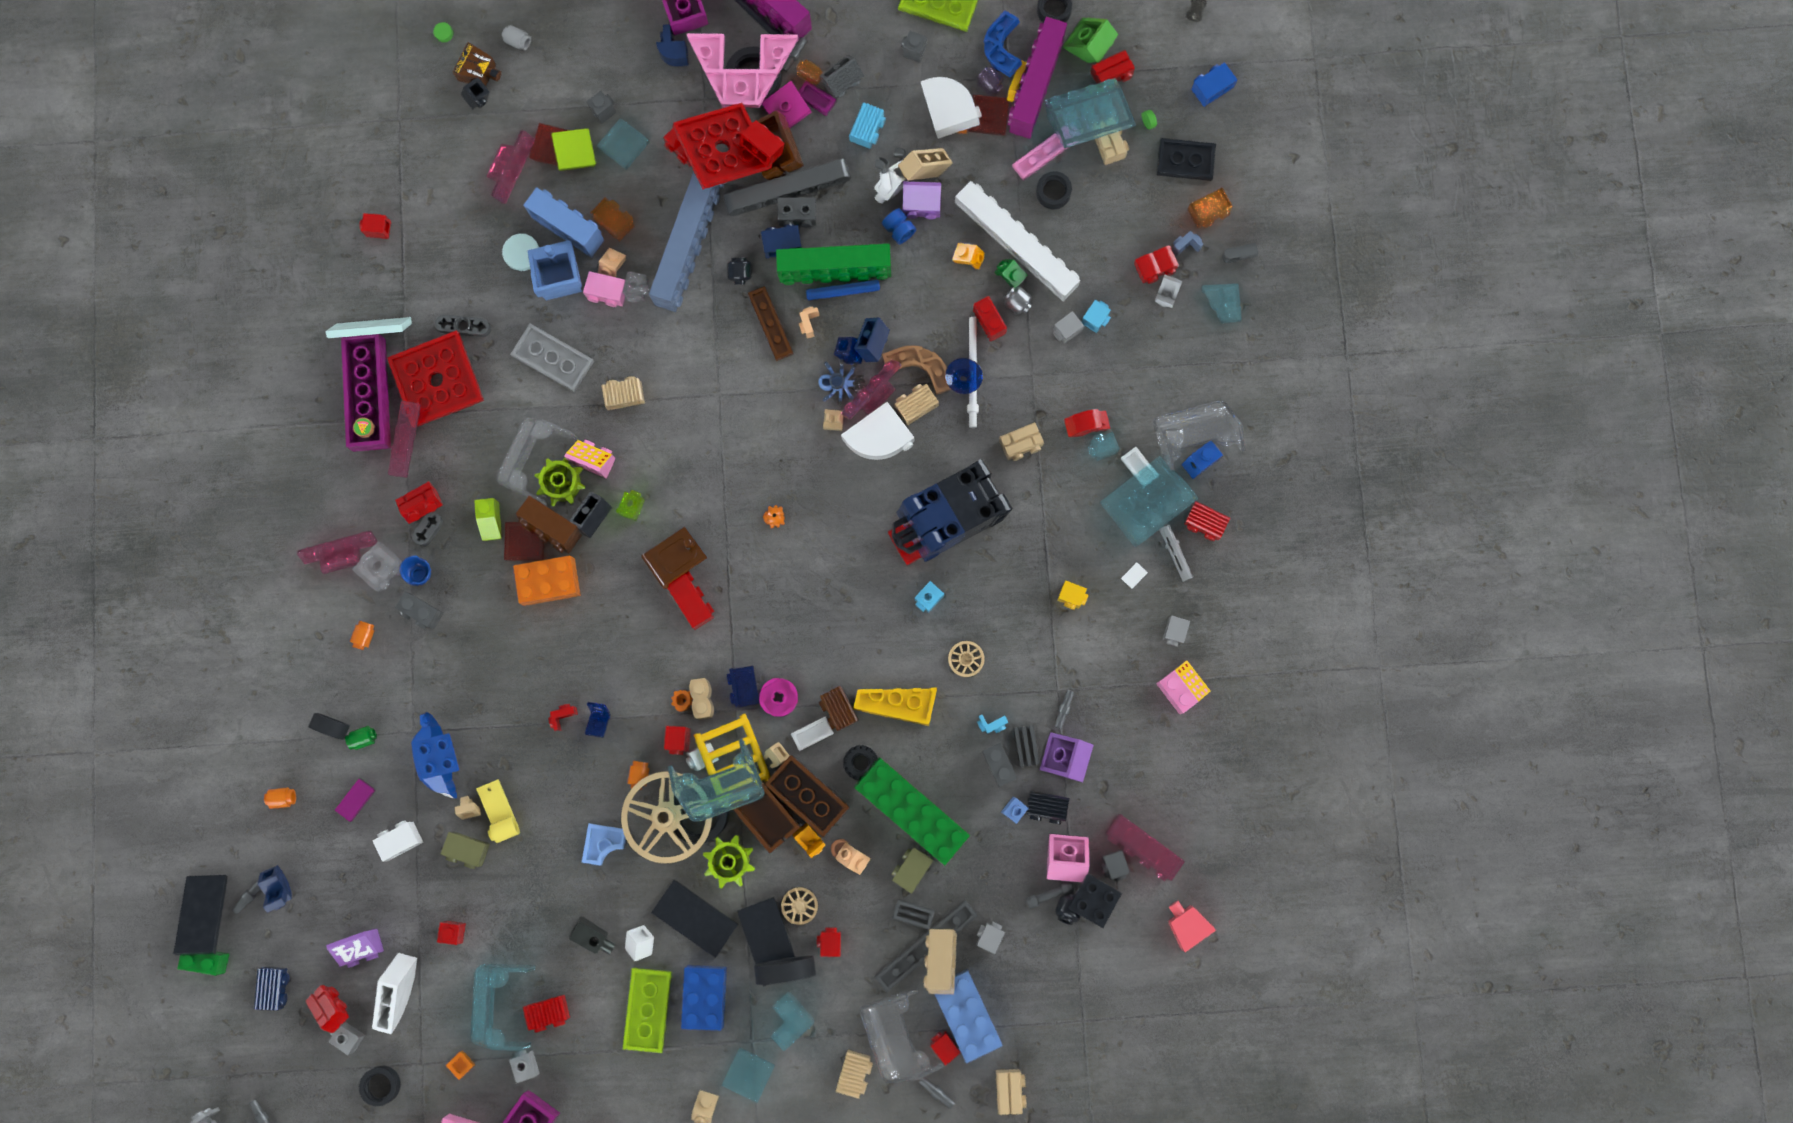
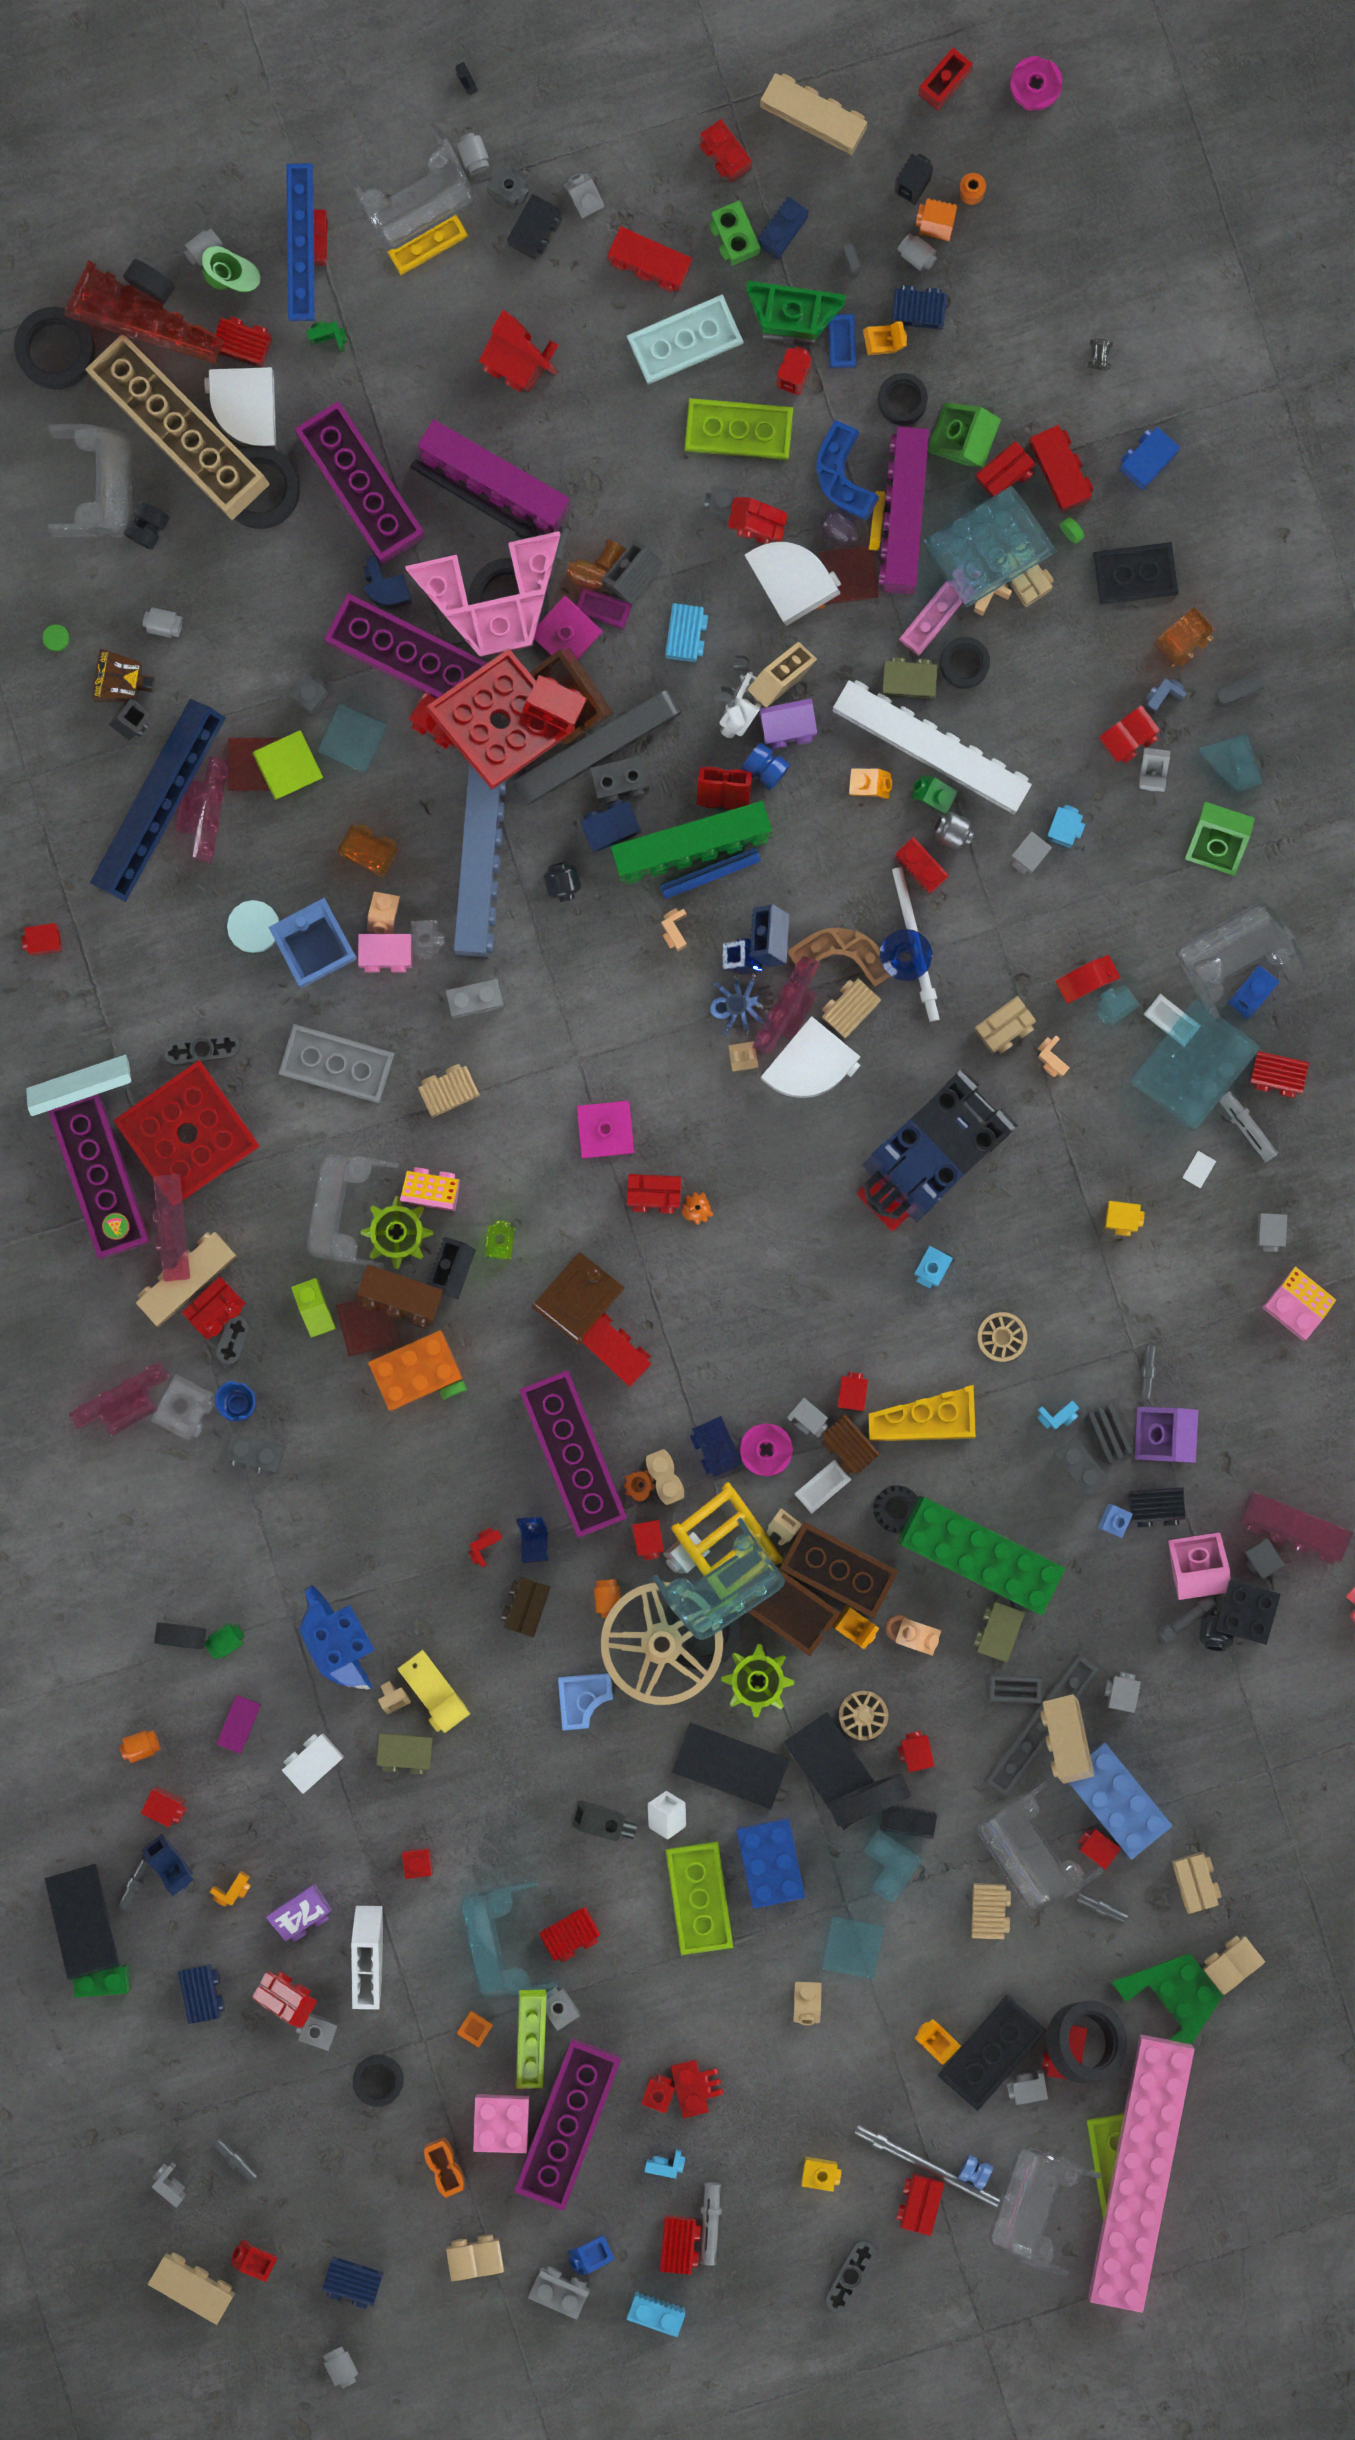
camera: 15 degrees left, 5 degrees up
(281, 846) = (164, 1807): none -> red brick
(320, 918) = (238, 1889): none -> light orange bracket
(362, 635) = (187, 1504): orange brick -> none
(421, 470) = (204, 1263): none -> tan brick
(478, 151) = (157, 800): none -> dark blue brick
(495, 1084) = (531, 2039): none -> lime tile
(564, 222) = (306, 874): medium blue brick -> none
(569, 600) = (452, 1390): none -> bright green tile
(579, 766) = (526, 1606): none -> dark brown brick
(640, 666) = (573, 1453): none -> magenta brick
(658, 335) = (474, 998): none -> light grey brick
(665, 85) = (399, 648): none -> magenta brick
(725, 447) = (605, 1129): none -> dark pink plate
(746, 497) = (654, 1192): none -> red brick
(770, 323) = (622, 943): reddish brown tile -> none
(812, 992) = (909, 1821): none -> black brick
(814, 682) = (809, 1418): none -> light grey brick
(829, 61) = (609, 555): none -> clear orange bush
(850, 671) = (852, 1392): none -> red brick
(865, 232) = (723, 788): none -> red brick
(934, 59) = (757, 520): none -> red brick
(1013, 192) = (909, 679): none -> olive brick
(1048, 475) = (1053, 1064): none -> light nougat bracket
(1077, 150) = (982, 604): none -> light nougat bracket
(1151, 77) = (1061, 468): none -> red brick
(1202, 349) = (1220, 838): none -> bright green slope

